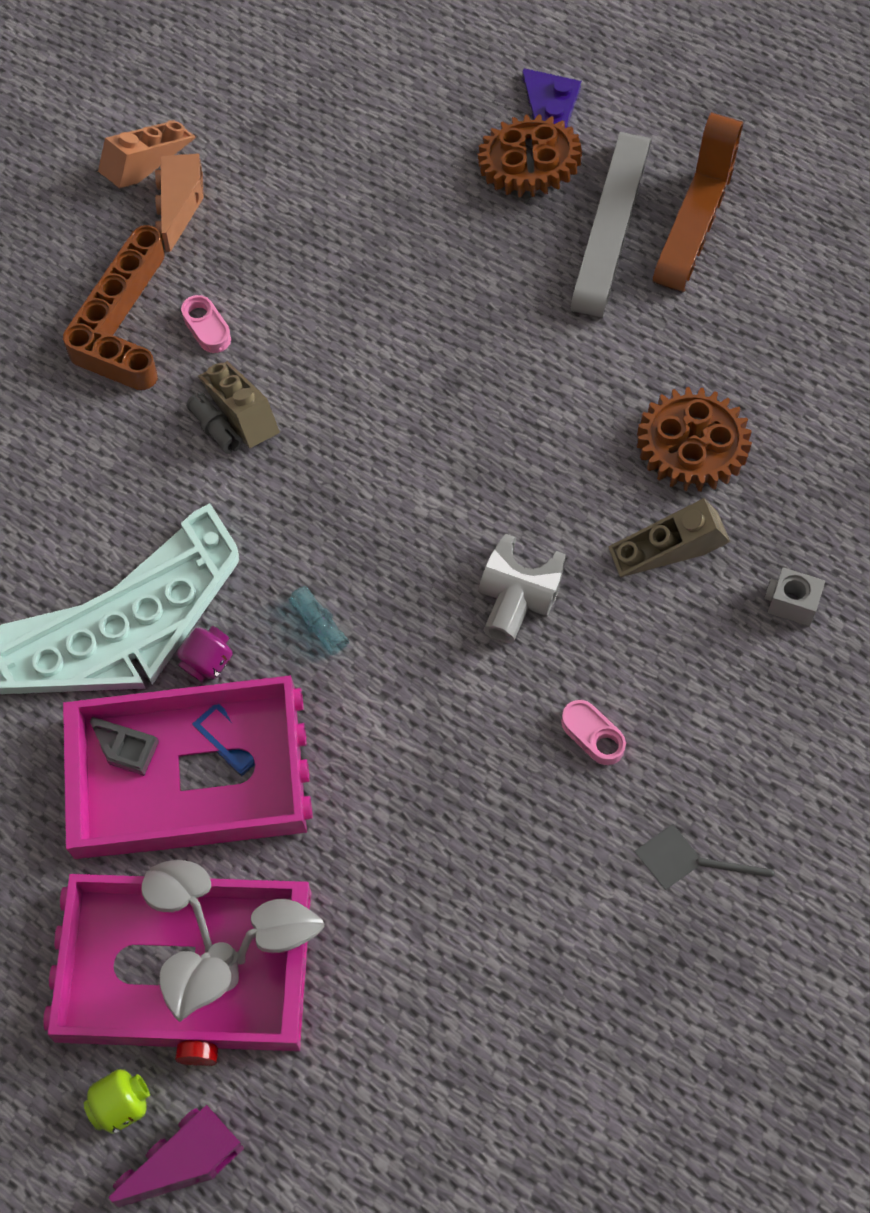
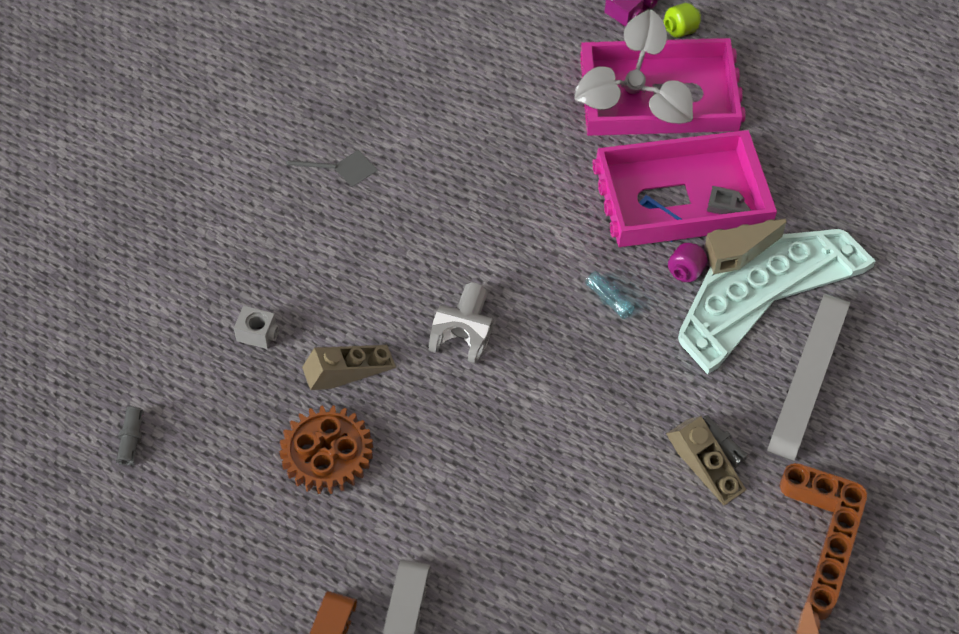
camera: 175 degrees right, 5 degrees down
(80, 495) = (808, 377): none -> light grey beam
(129, 651) = (736, 247): none -> dark tan slope
(211, 329) = (745, 529): bright pink piece -> none
(587, 726) = (410, 238): bright pink piece -> none

